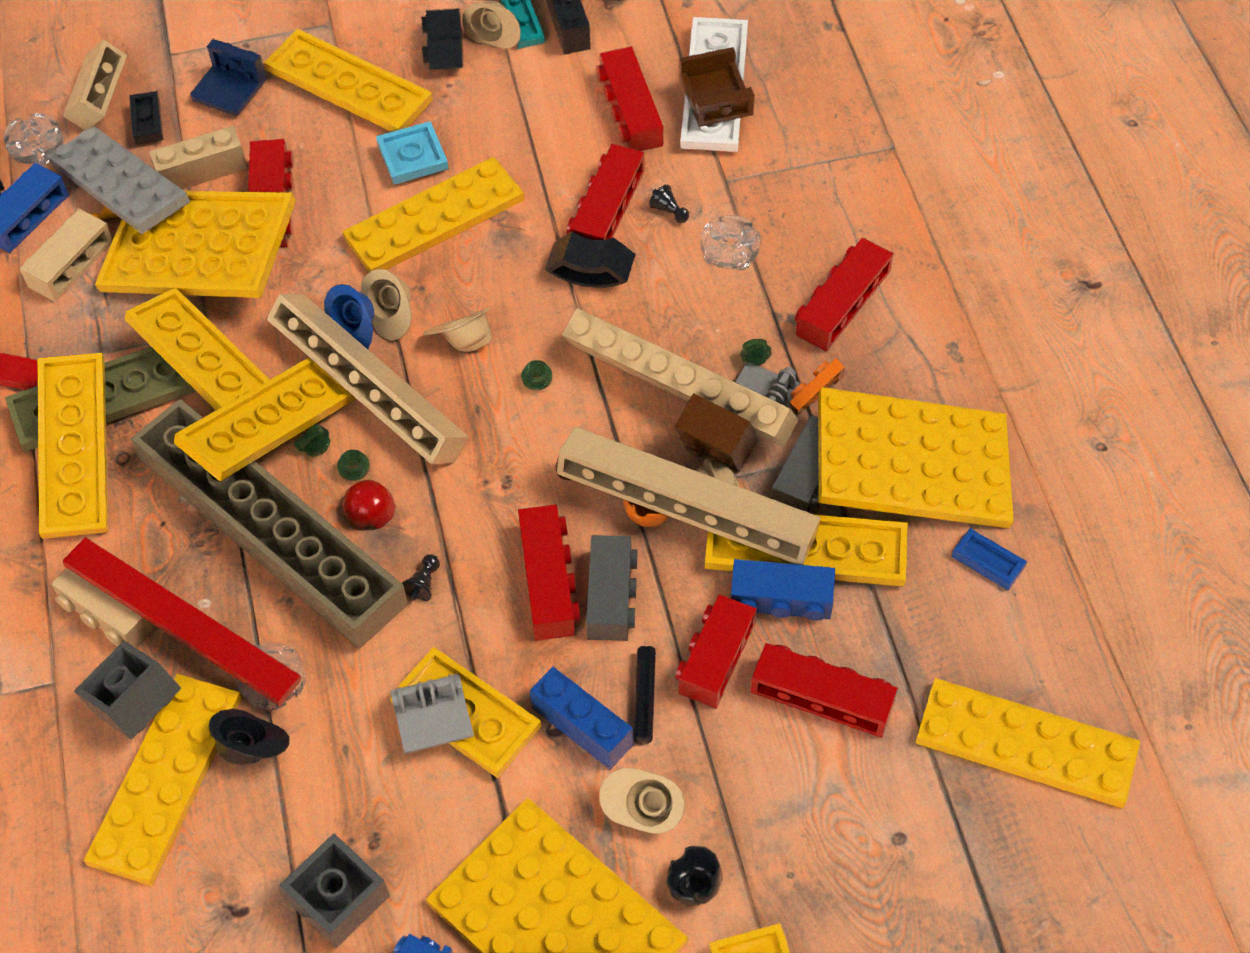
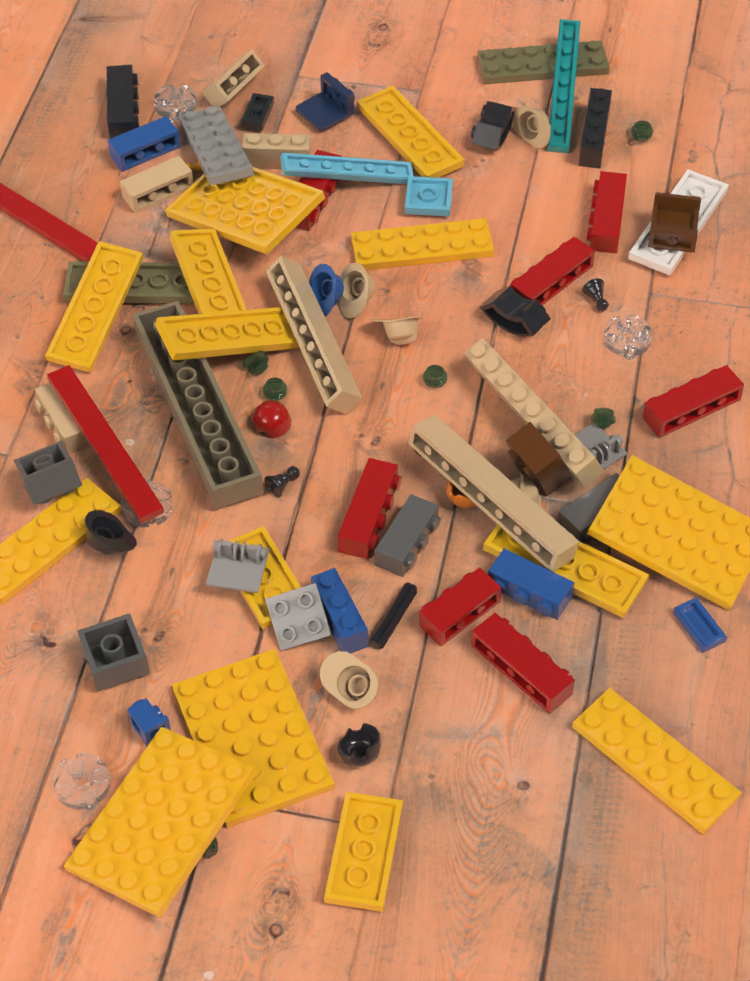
camera: 25 degrees right, 5 degrees down
(296, 153) = (345, 168): none -> medium azure tile
(538, 746) = (298, 616): none -> light grey hinge
(825, 375) = (641, 448): orange wing -> none

